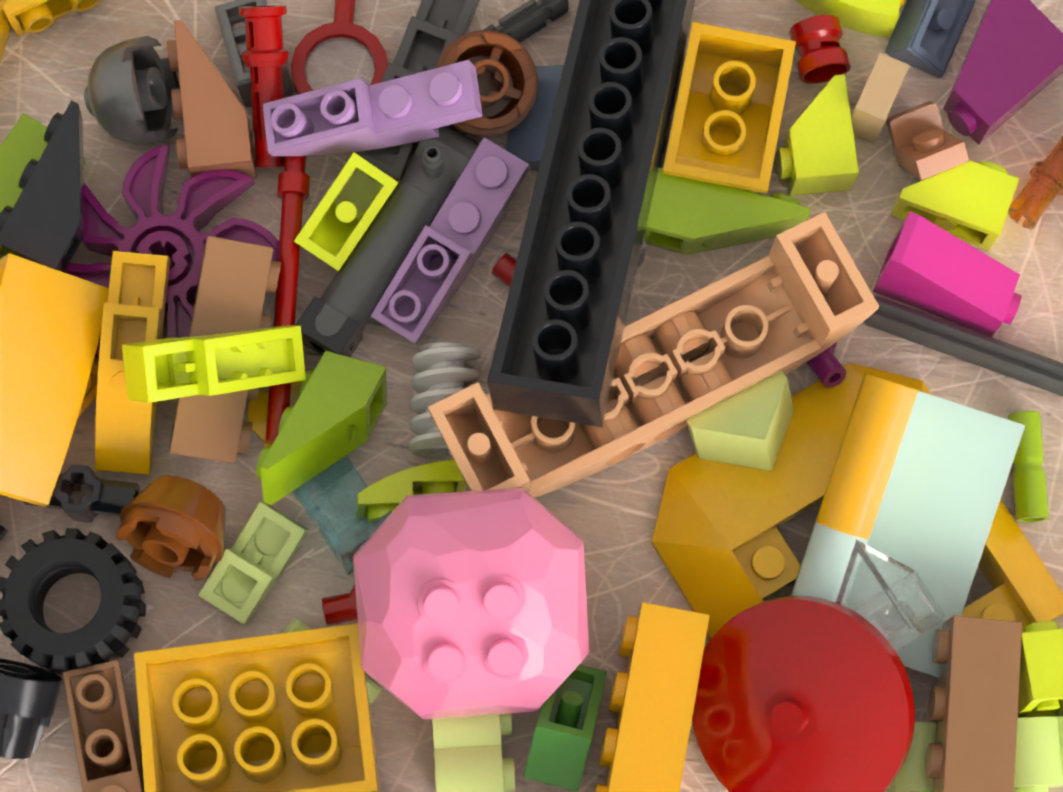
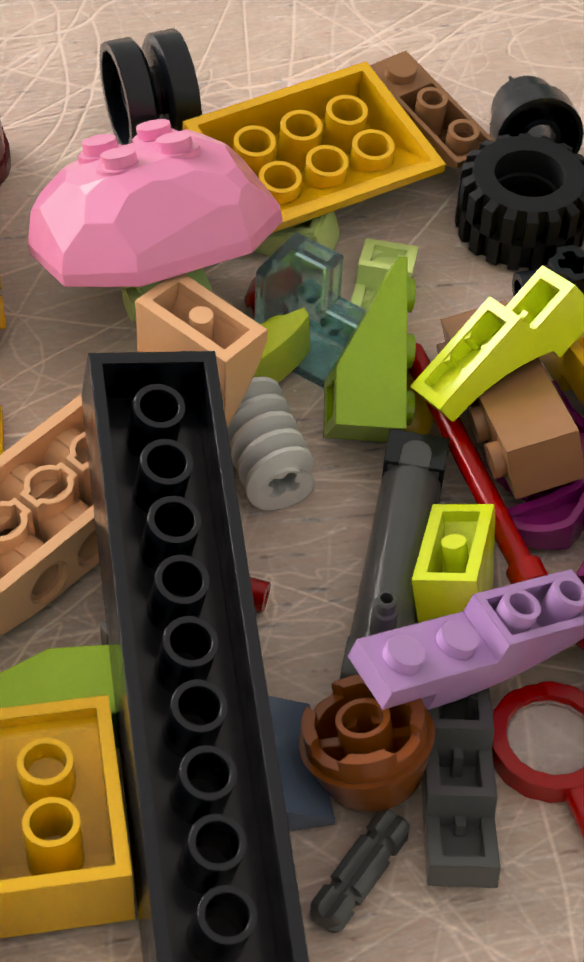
camera: 160 degrees right, 25 degrees down
(175, 527) = (466, 262): dark orange cone -> none
(452, 242) = (326, 585): lavender slope -> none
(566, 729) = (27, 277): bright green slope -> none

